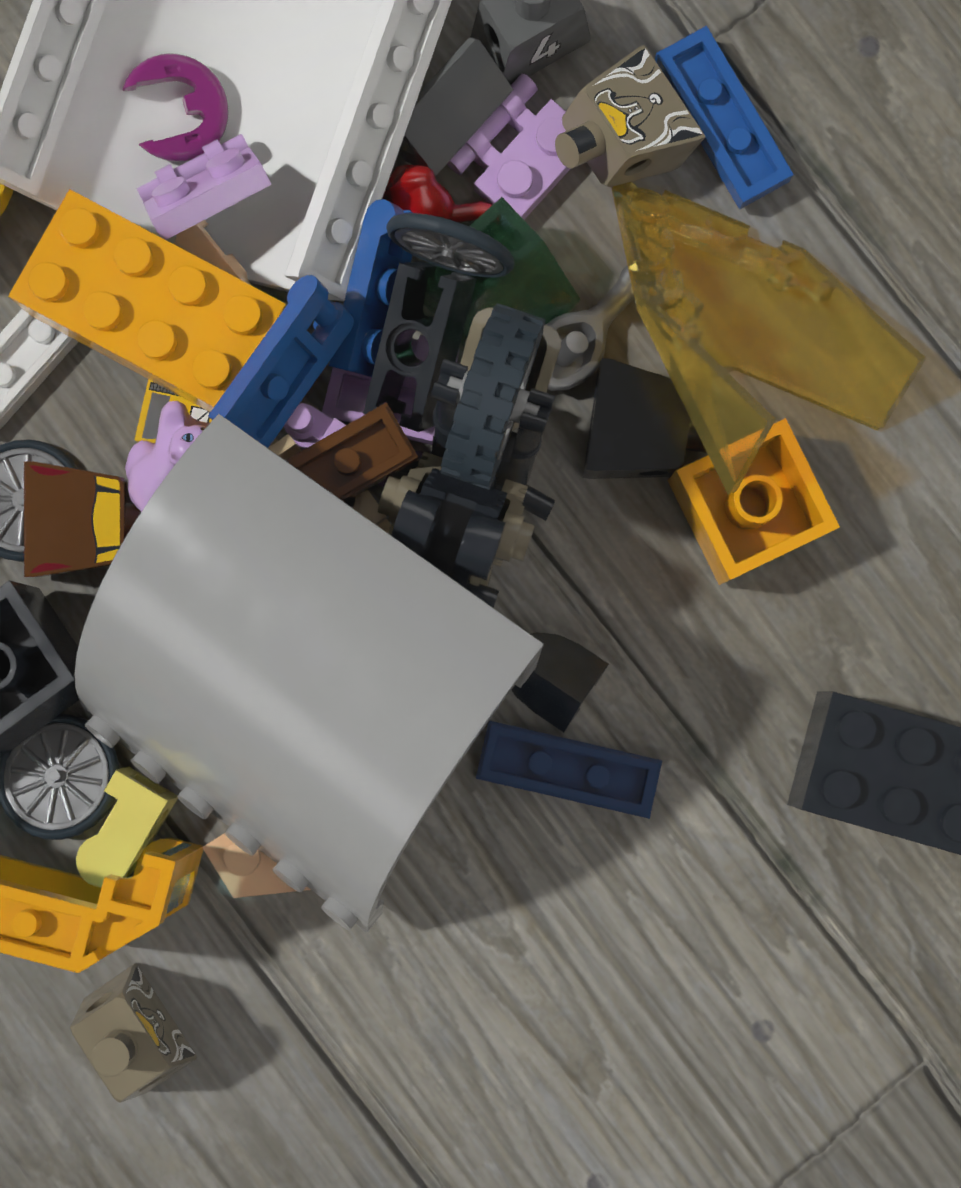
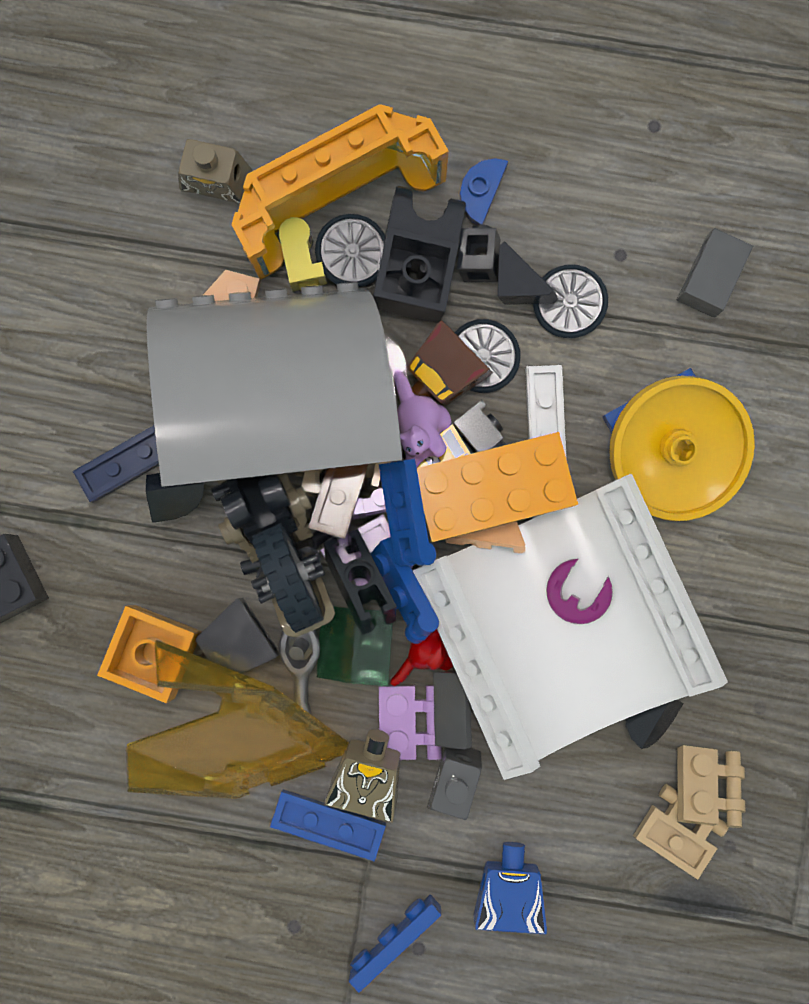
camera: 135 degrees right, 0 degrees up
(110, 406) = (479, 430): none -> brick
(202, 186) = (527, 564): lavender plate -> none
(450, 245) = (381, 636): wheel -> none

